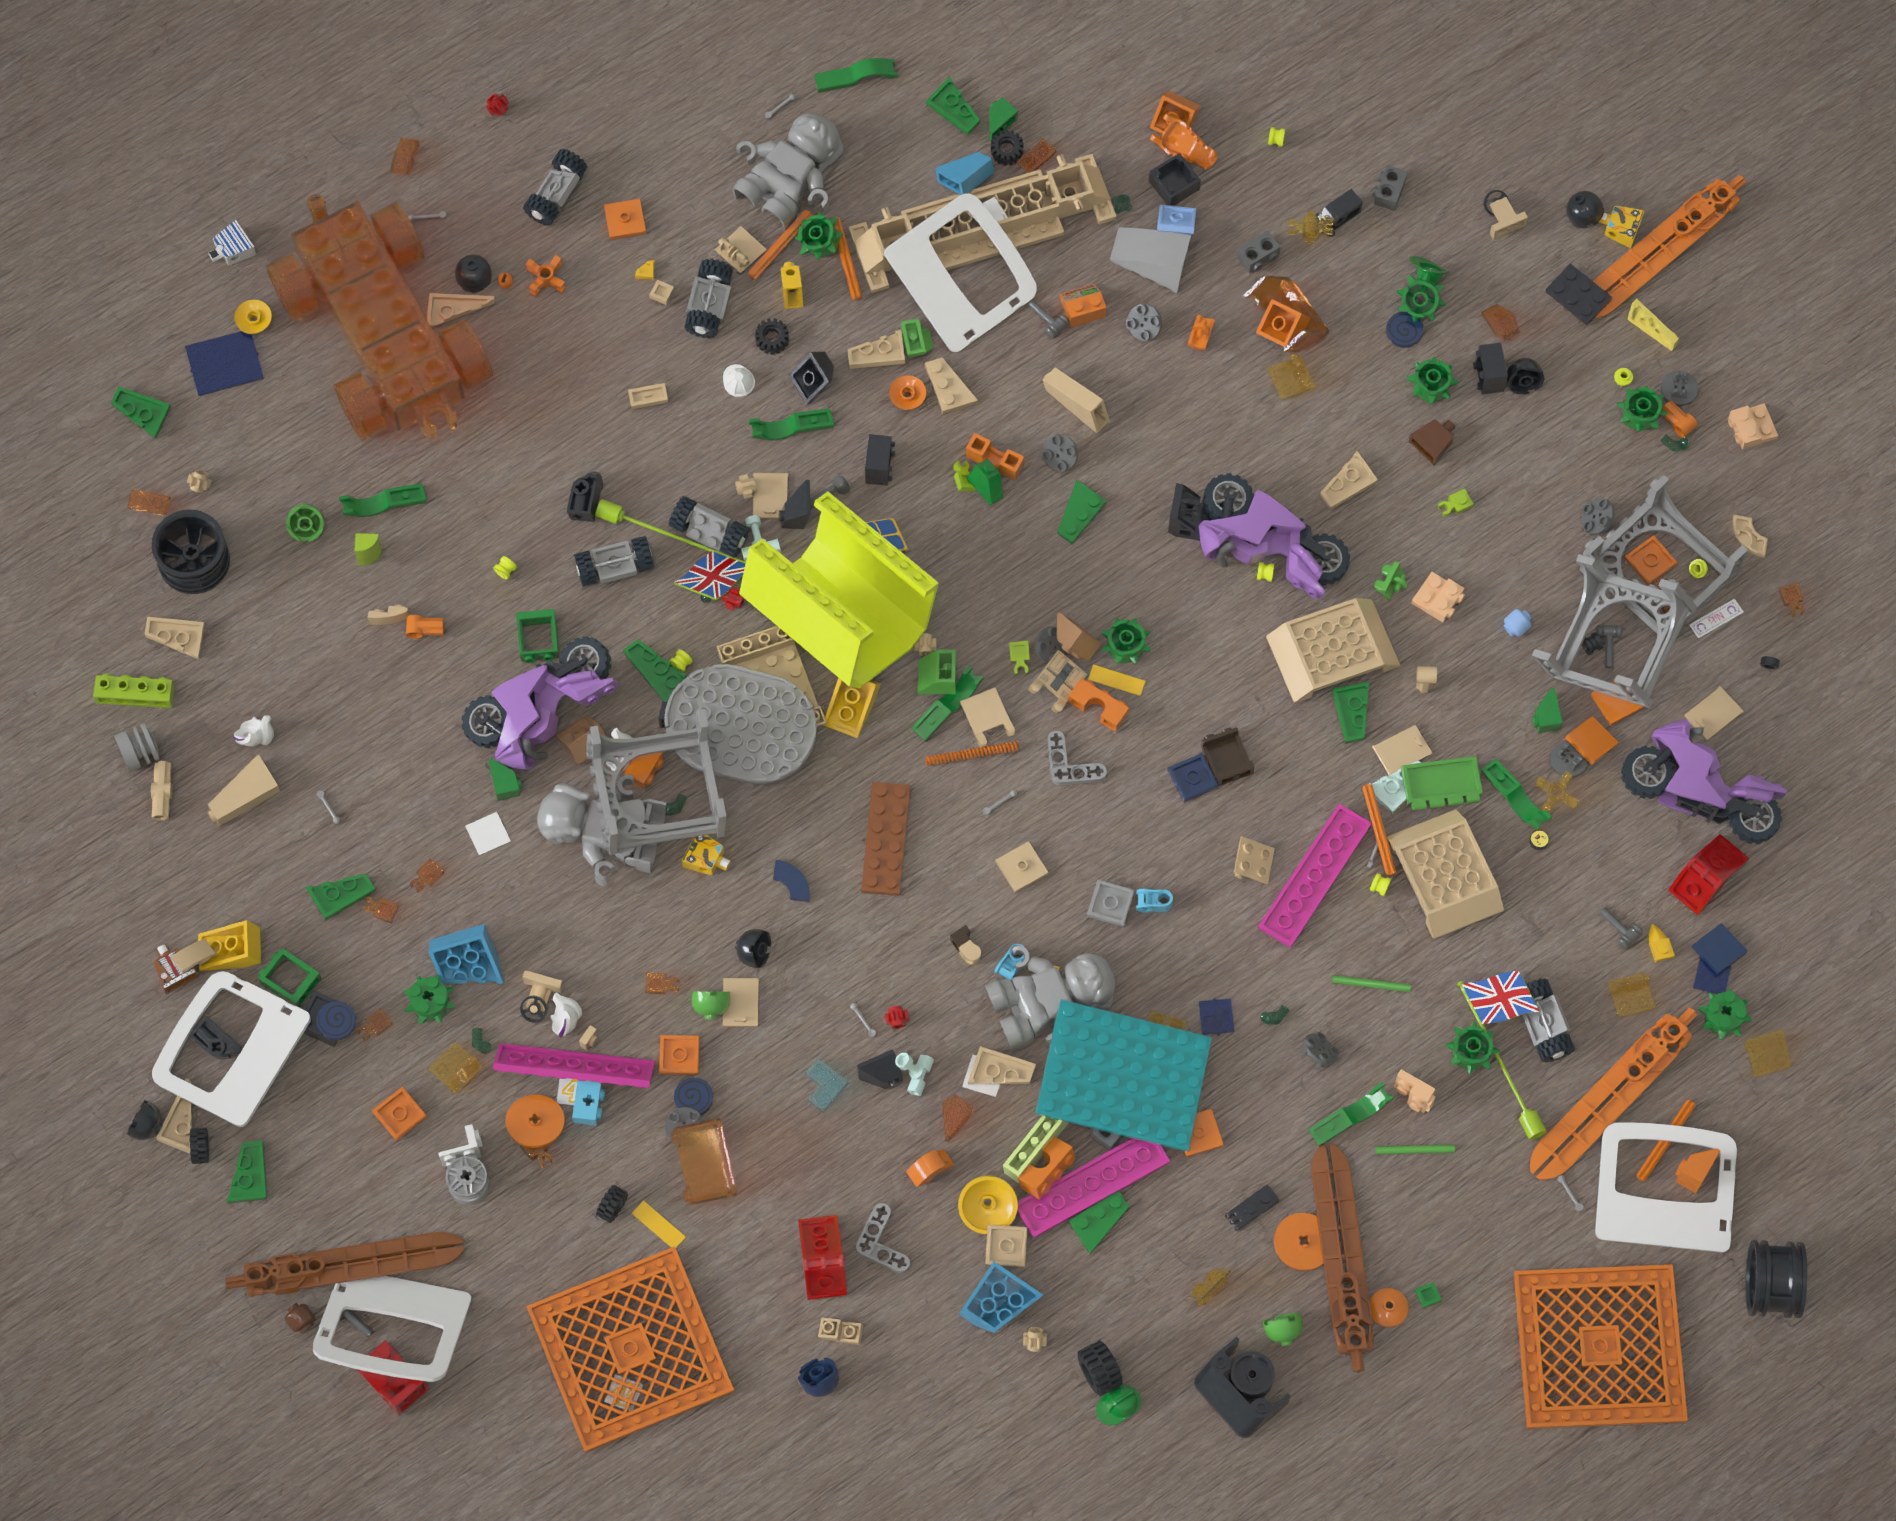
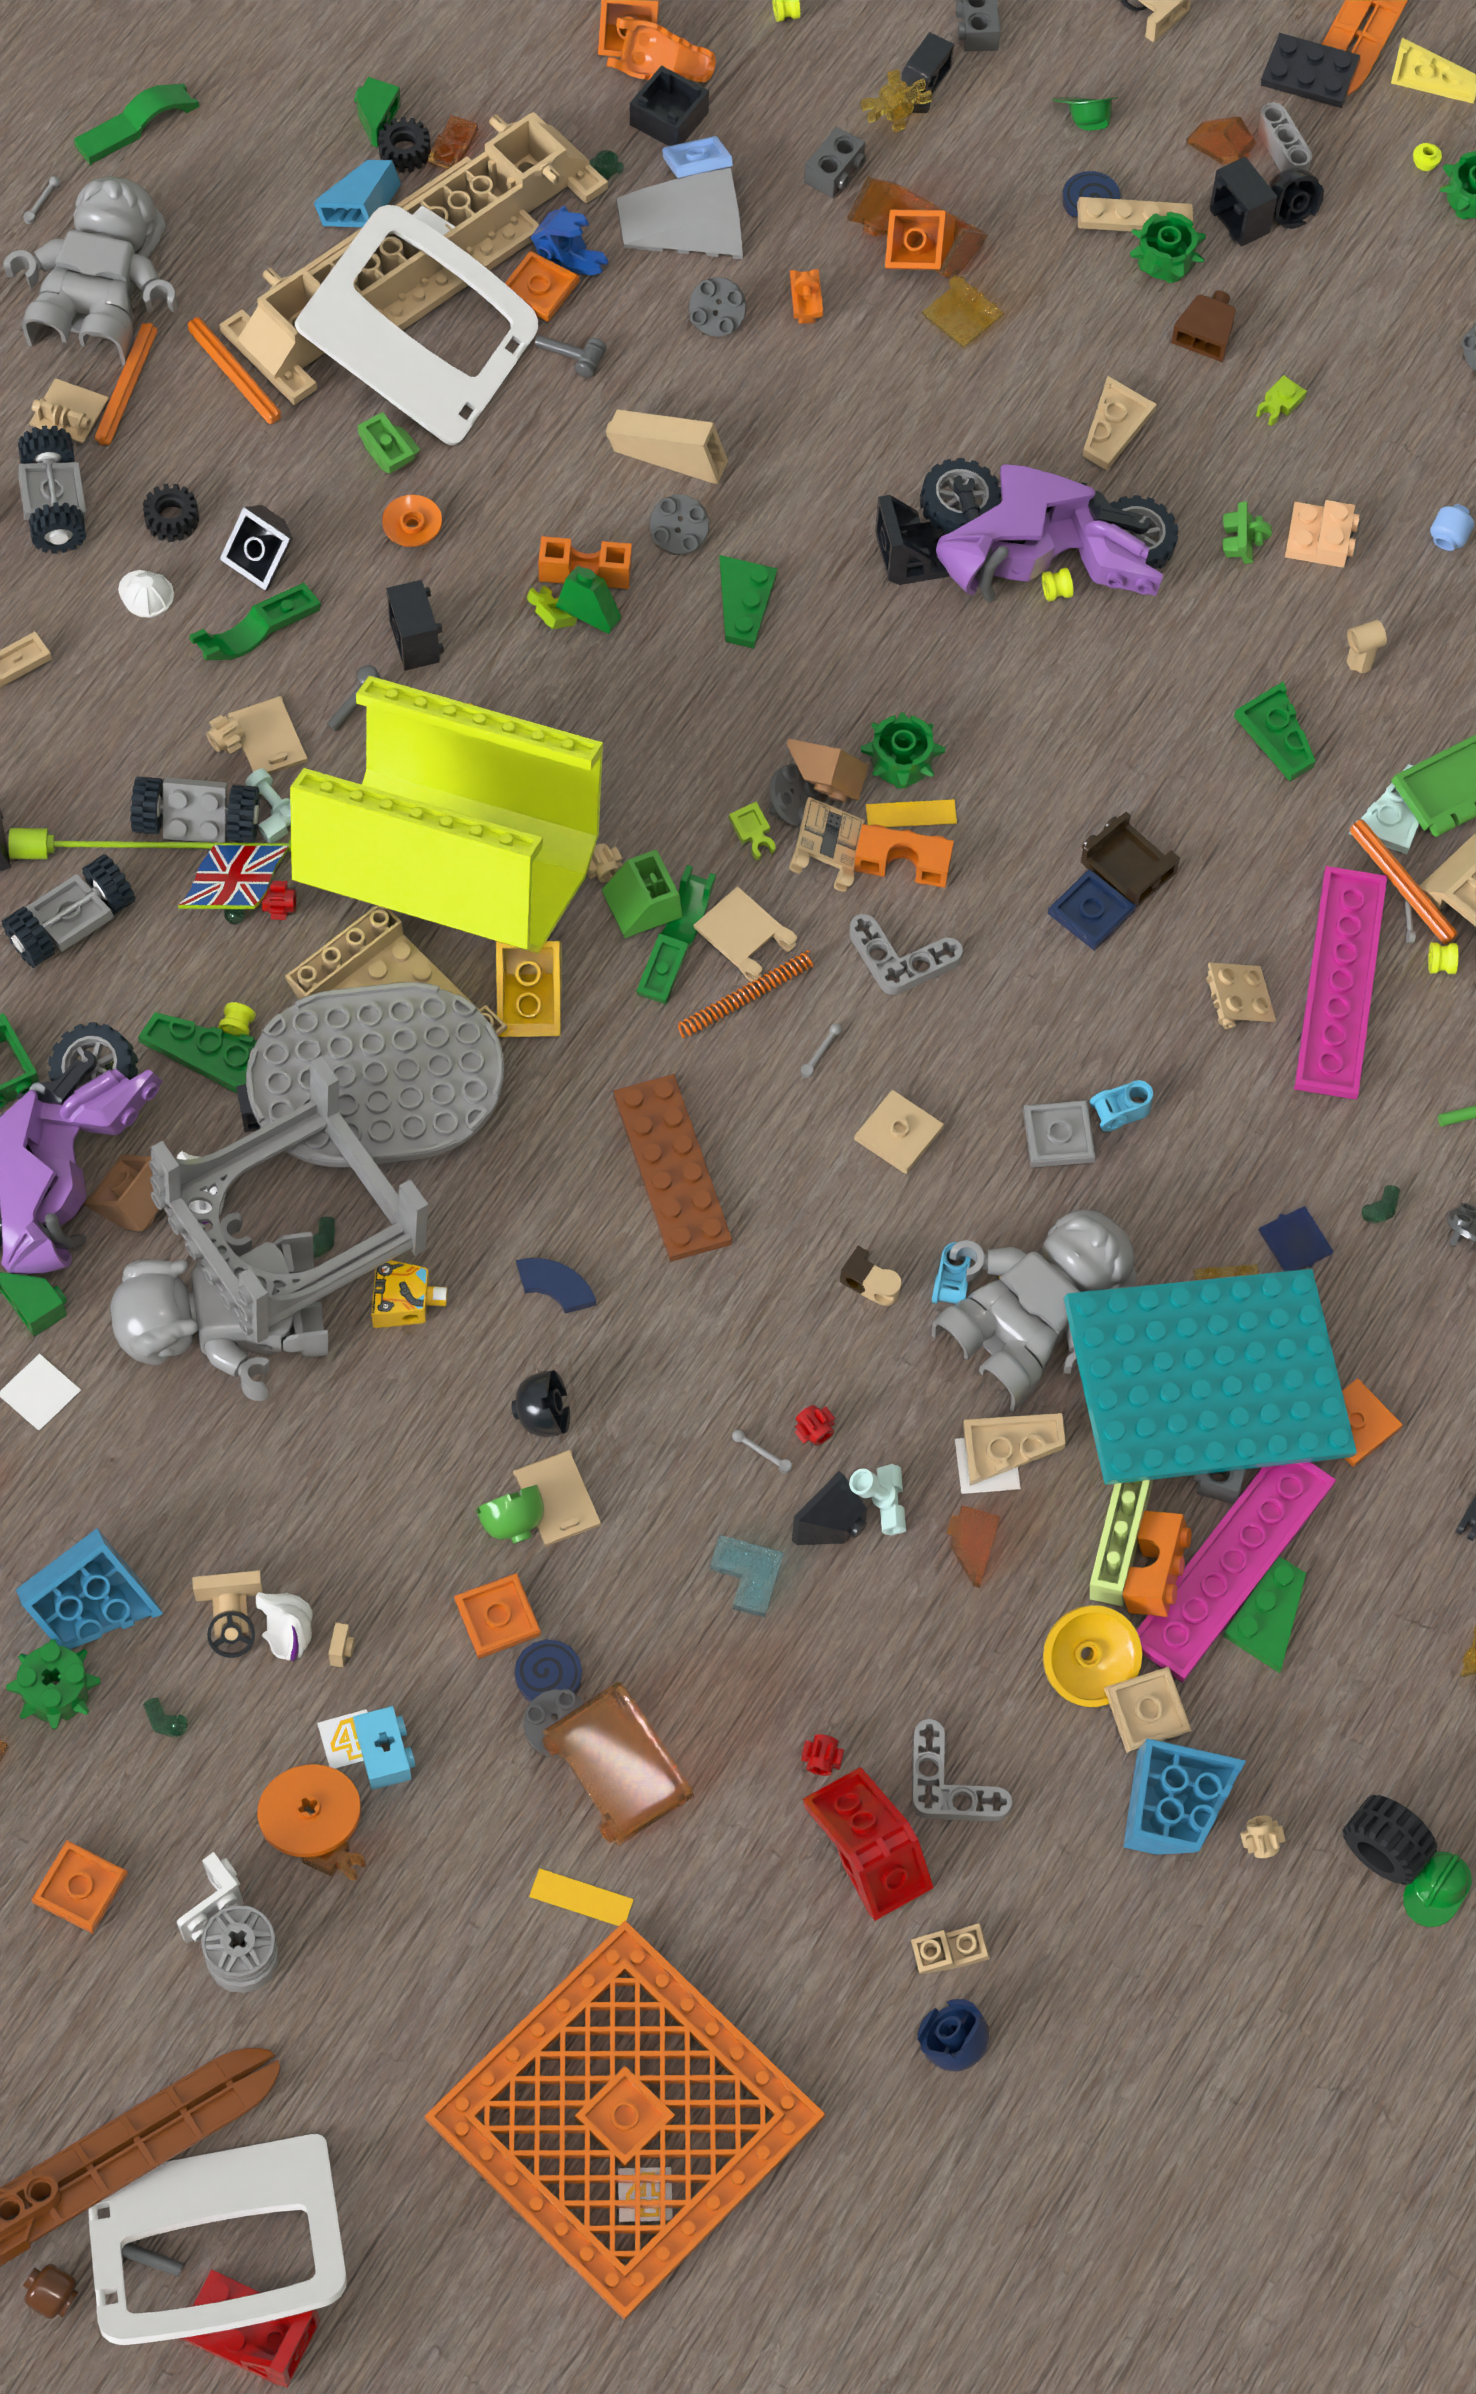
camera: 25 degrees left, 5 degrees down
(455, 1067) = (142, 1776): clear yellow hinge -> none
(574, 1065) = (336, 1696): dark pink plate -> none
(612, 1203) = (494, 1892): black tyre -> none
(644, 768) = (249, 1198): orange brick -> none
(657, 983) = (414, 1518): clear orange plate -> none
(791, 280) = (167, 418): yellow torso -> none
(797, 508) = (322, 735): black slope -> none
(818, 1200) = (822, 1755): none -> red gear
(819, 236) = (182, 348): green brick -> none
(883, 352) = (344, 481): tan wing -> none
(929, 1166) = (972, 1634): orange brick -> none
(948, 387) = (467, 494): tan wing -> none
(951, 105) = (295, 116): green wing -> none
(1048, 269) = (542, 284): none -> orange plate
(1073, 248) = (561, 242): none -> blue piece
(1083, 305) = (617, 315): orange slope -> none
(1331, 647) = (1203, 655): tan slope -> none
(1402, 749) = (1375, 761): tan container -> none
(1411, 301) = (1108, 128): green brick -> none
(1421, 350) = (1124, 214): none -> tan plate
(1540, 329) = (1283, 138): none -> light grey beam

